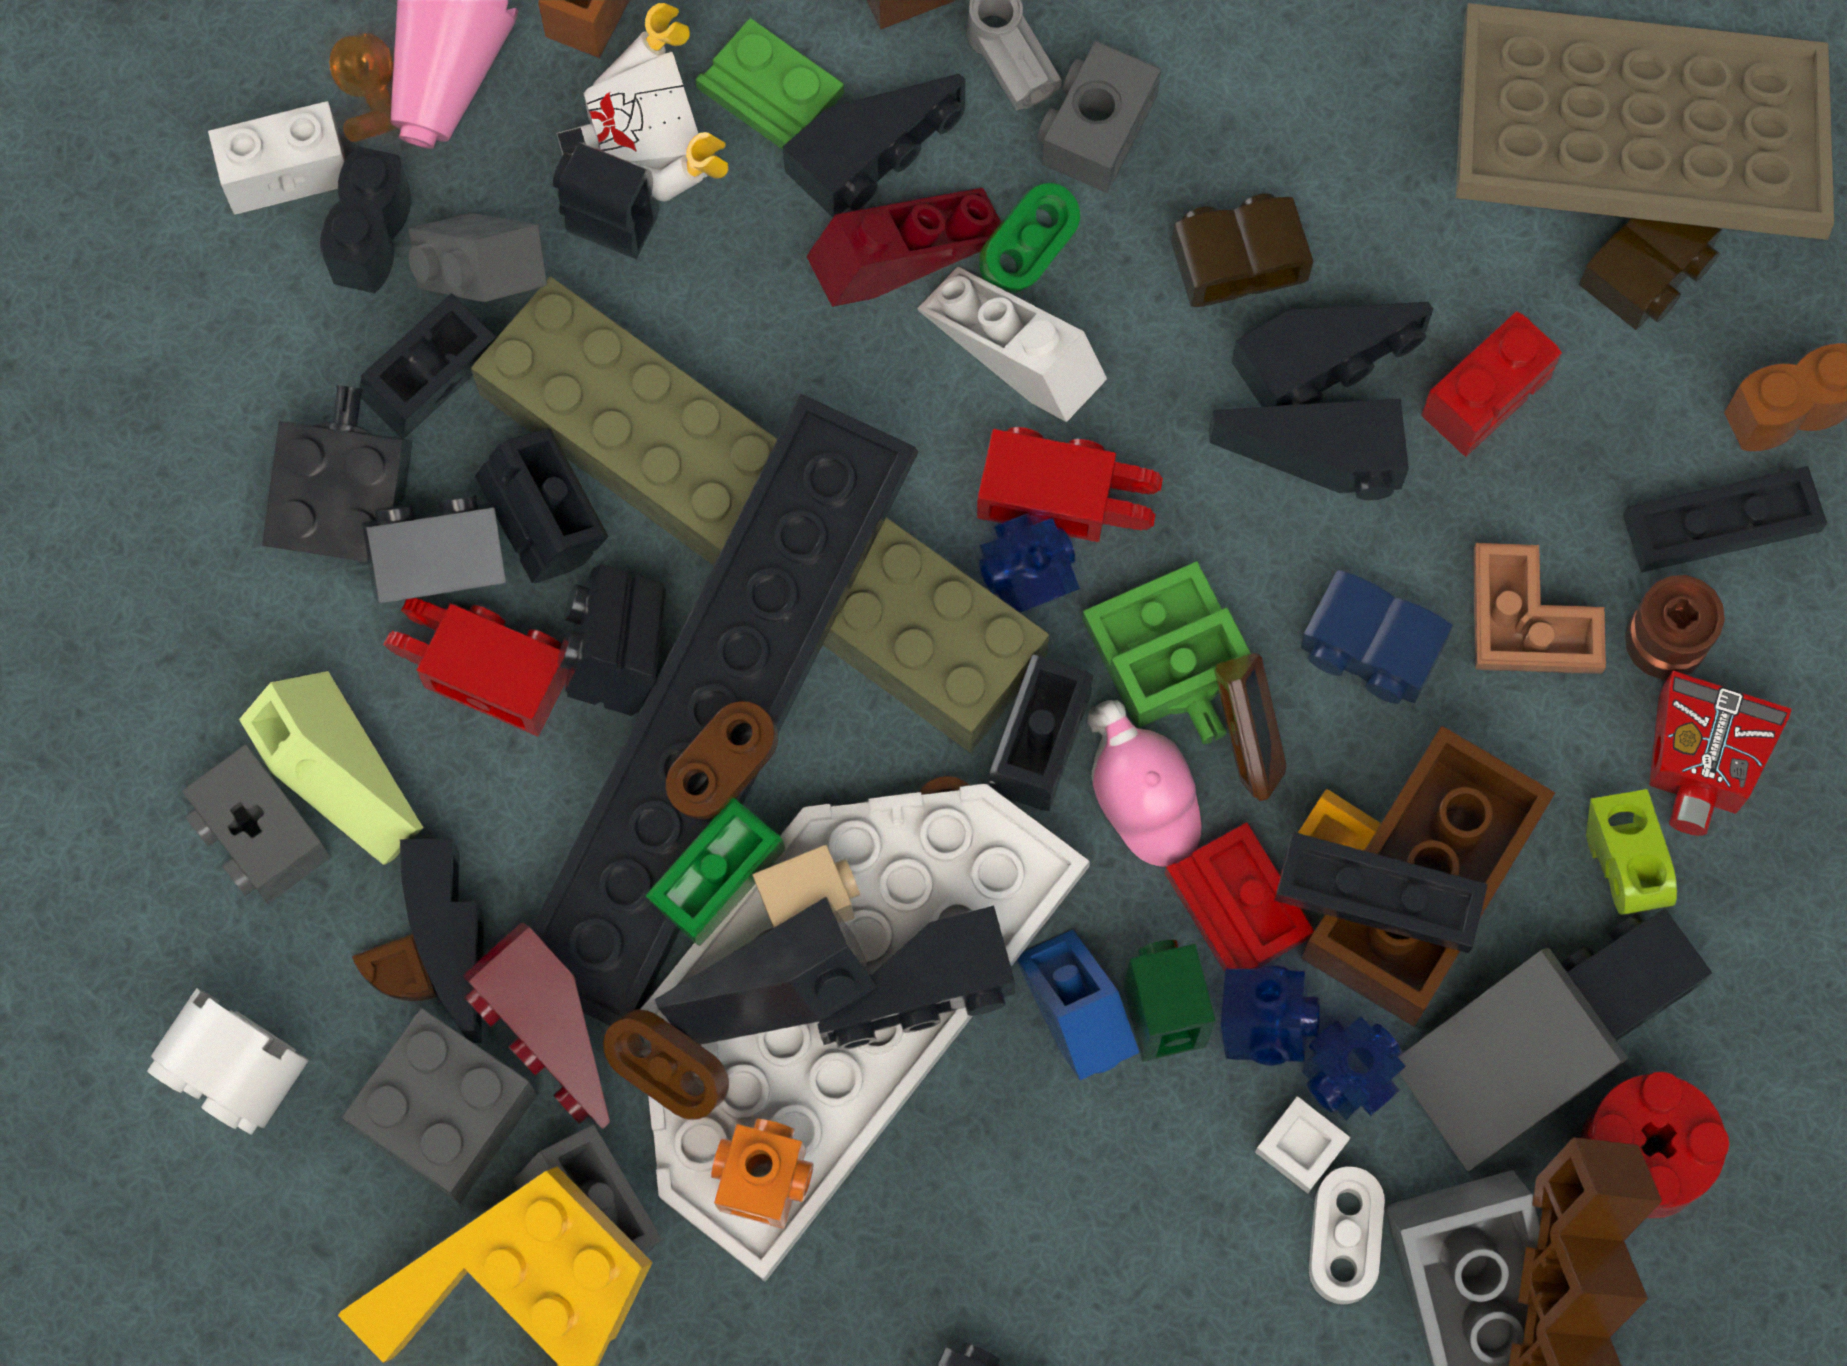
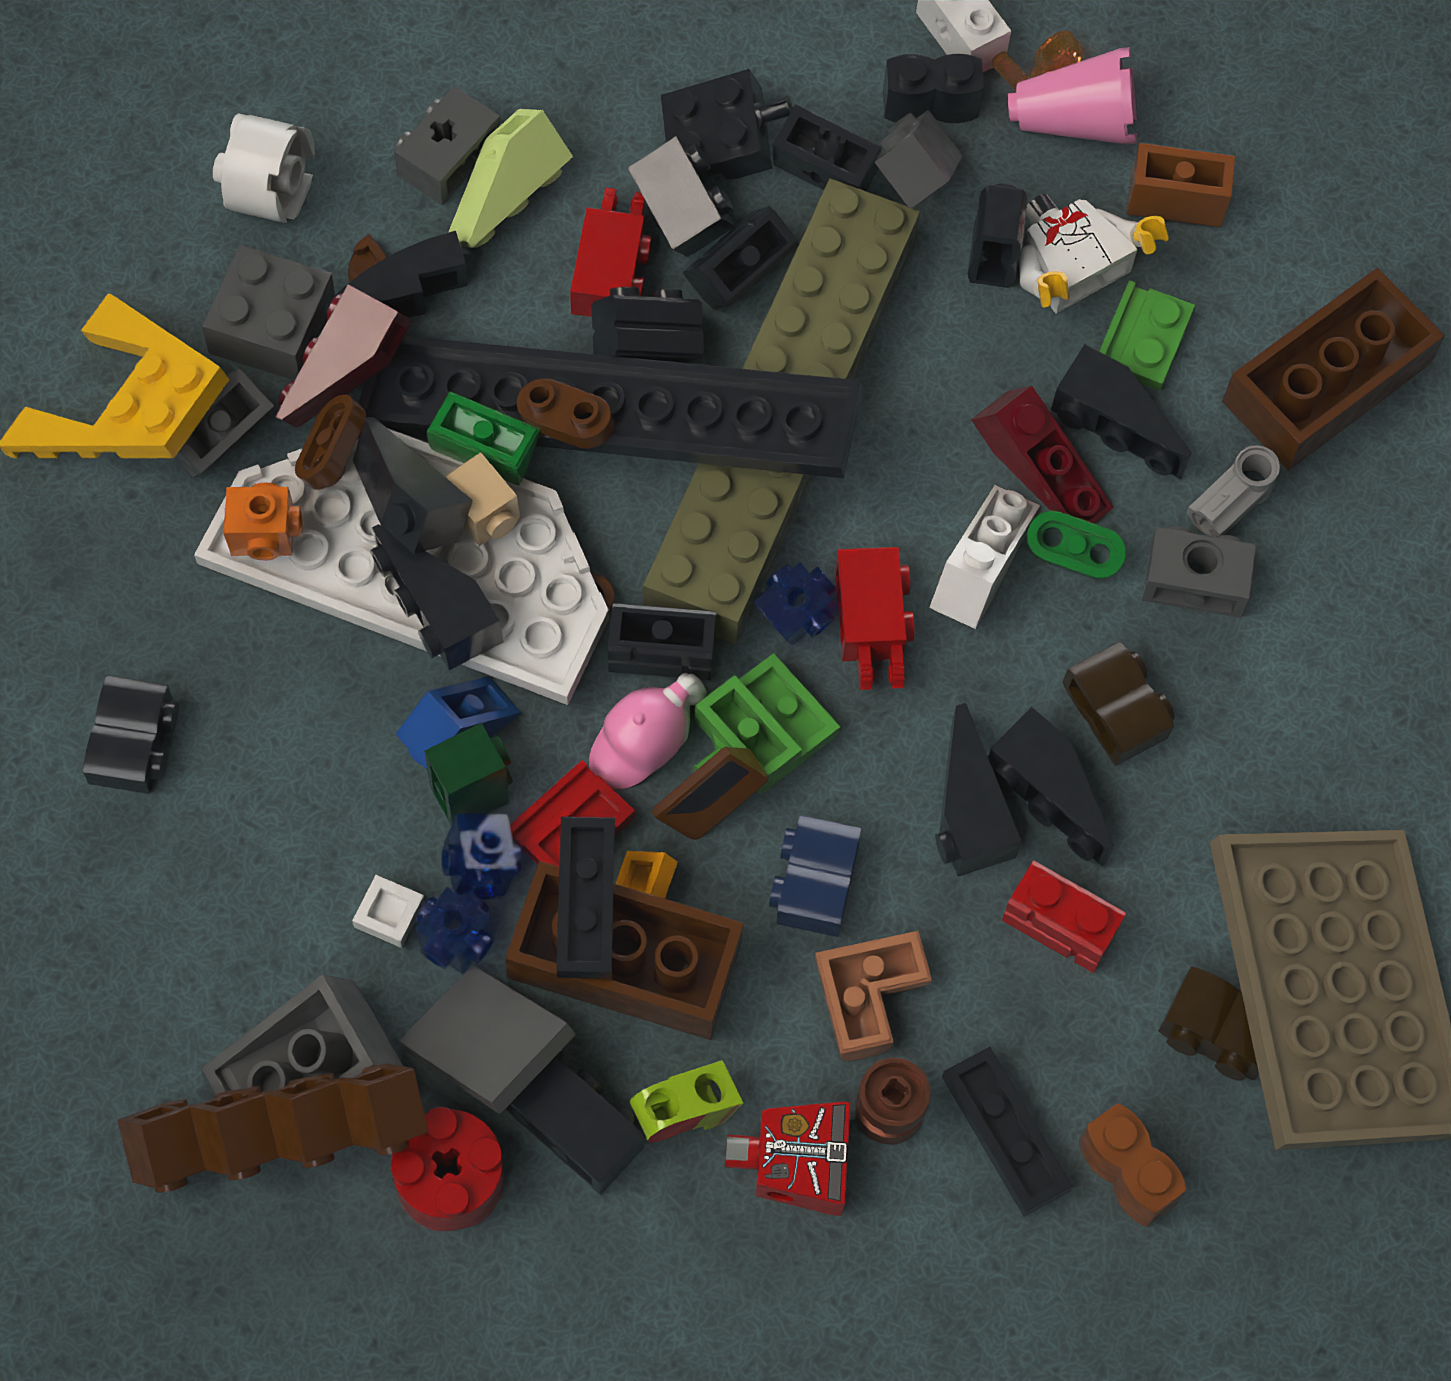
camera: 70 degrees right, 5 degrees down
(1346, 1236) = (325, 956): white plate -> none

